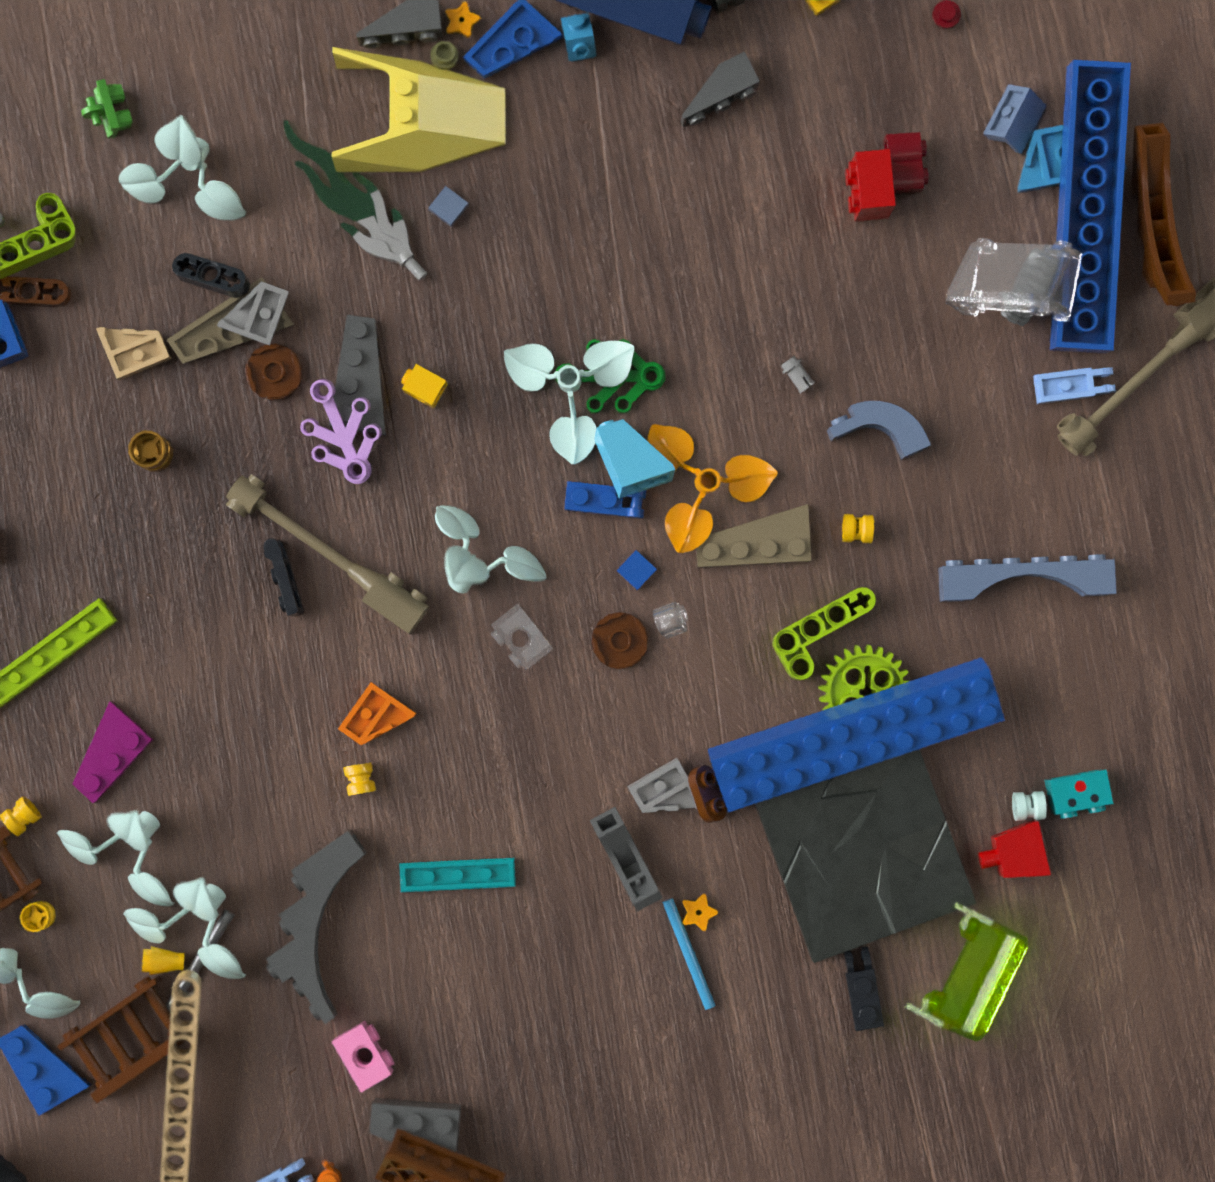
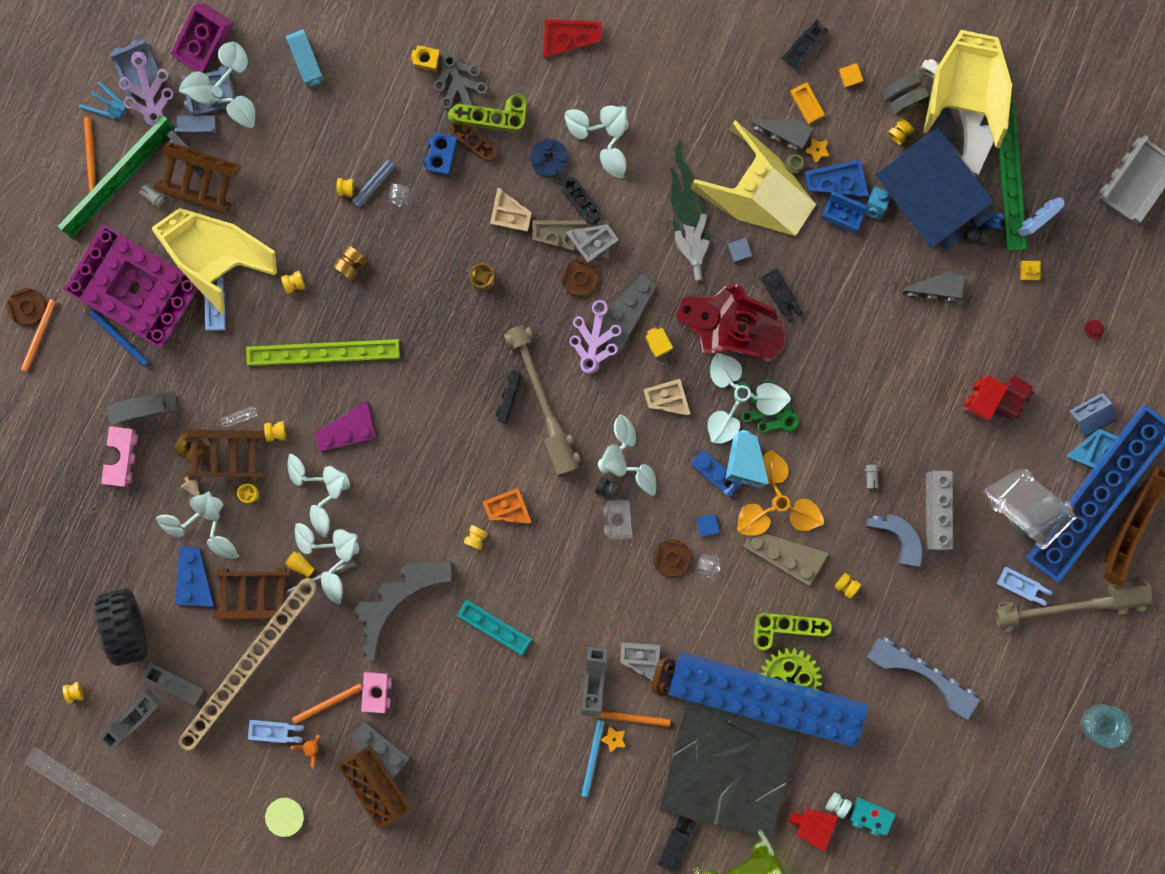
camera: 35 degrees right, 0 degrees up
(60, 81) = (569, 35): none -> red wing
(106, 96) = (582, 68): bright green hips -> none
(127, 236) = (548, 147): none -> dark blue plate
(313, 1110) = (328, 703): none -> orange bar
(480, 607) = (606, 487): none -> pearl dark grey wheel
(481, 446) = (667, 398): none -> tan wing
(503, 299) = (735, 324): none -> dark red piece
(534, 226) = (780, 293): none -> black hinge
(545, 74) = (844, 212): none -> blue bracket
(707, 869) = (635, 718): none -> orange bar
(908, 359) = (939, 510): none -> light grey panel

